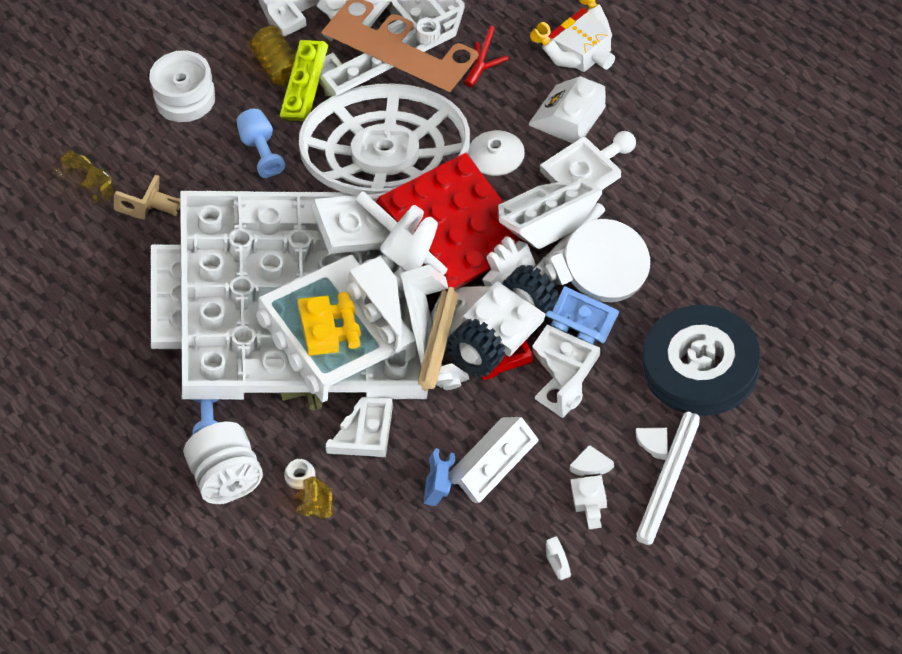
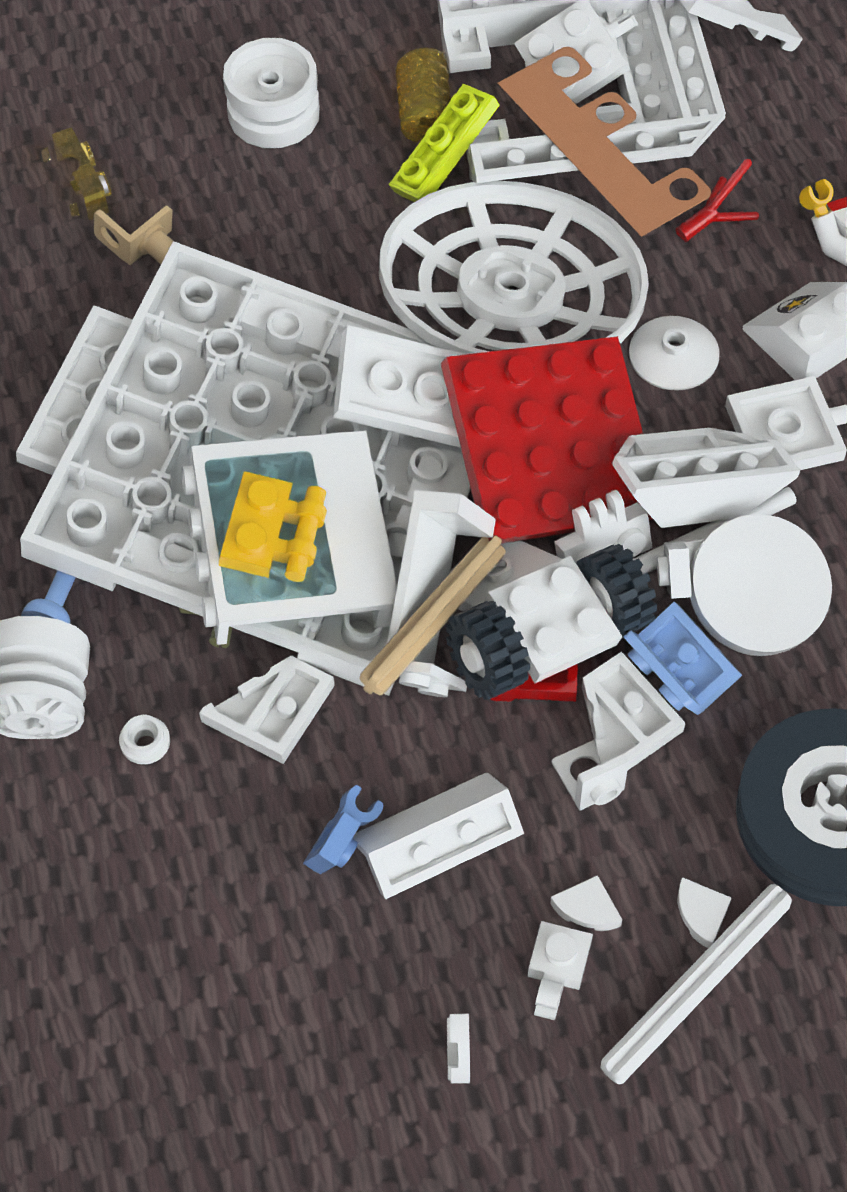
camera: 20 degrees right, 5 degrees up
(255, 132) = (341, 194): light blue piece -> none
(315, 498) = (146, 789): clear yellow tile -> none
(377, 293) = (368, 506): white slope -> none
(389, 223) = (456, 427): white bar -> none
(406, 246) = (444, 452): white piece -> none
(428, 37) = (655, 124): white axle -> none

